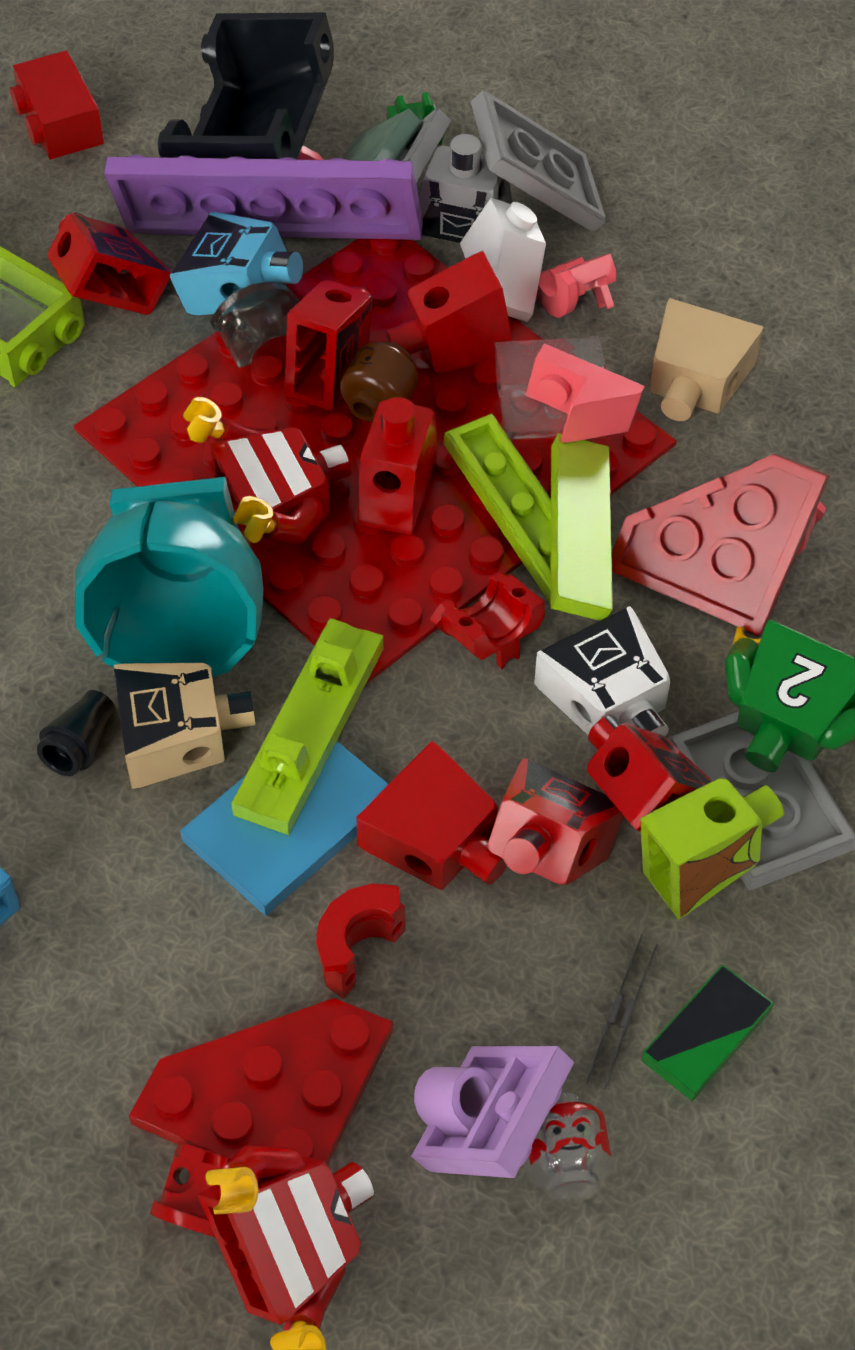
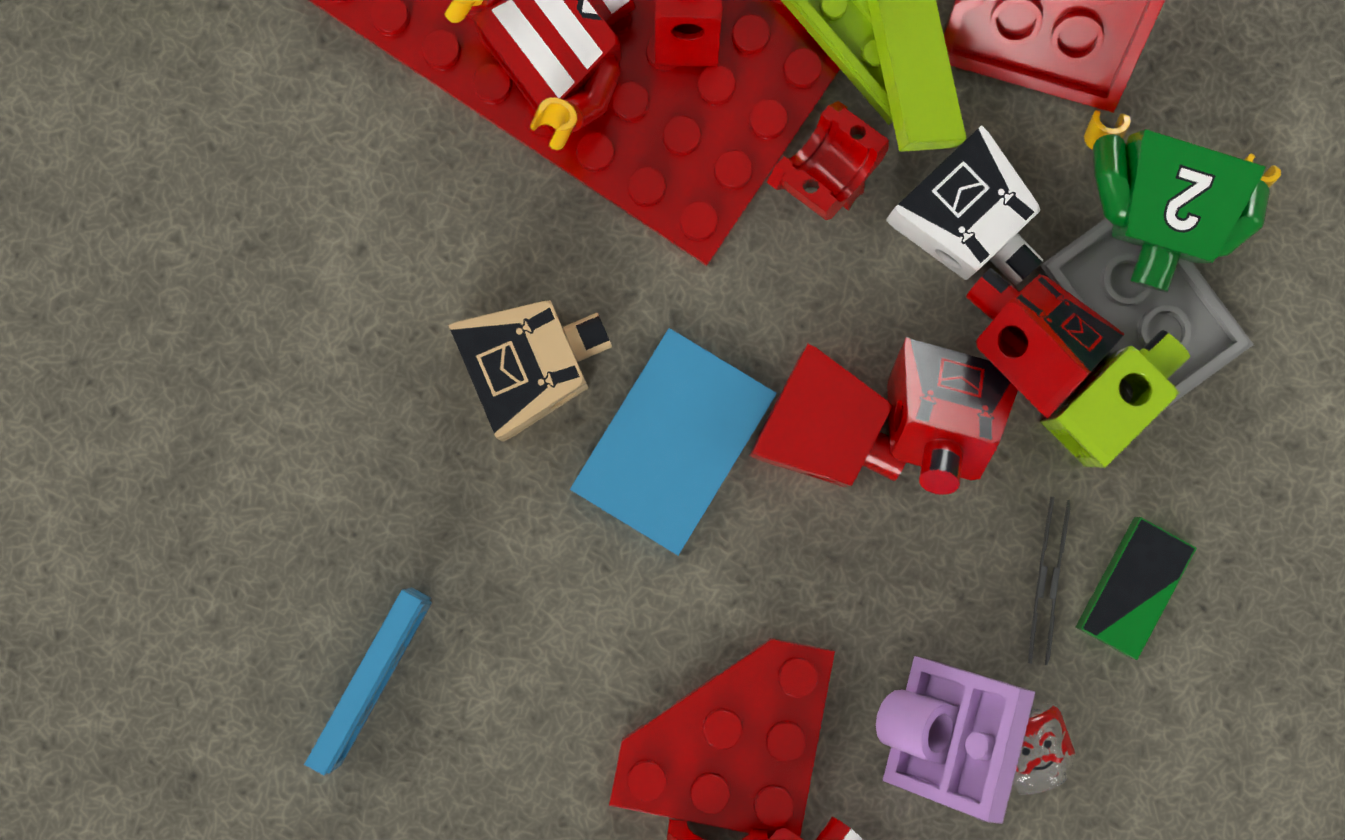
camera: 15 degrees left, 30 degrees up
(74, 736) = (429, 400): black cone -> none
(172, 579) = (482, 211): teal plate -> none
(307, 727) = (670, 339): lime hinge -> none
(351, 917) = (763, 568): red piece -> none

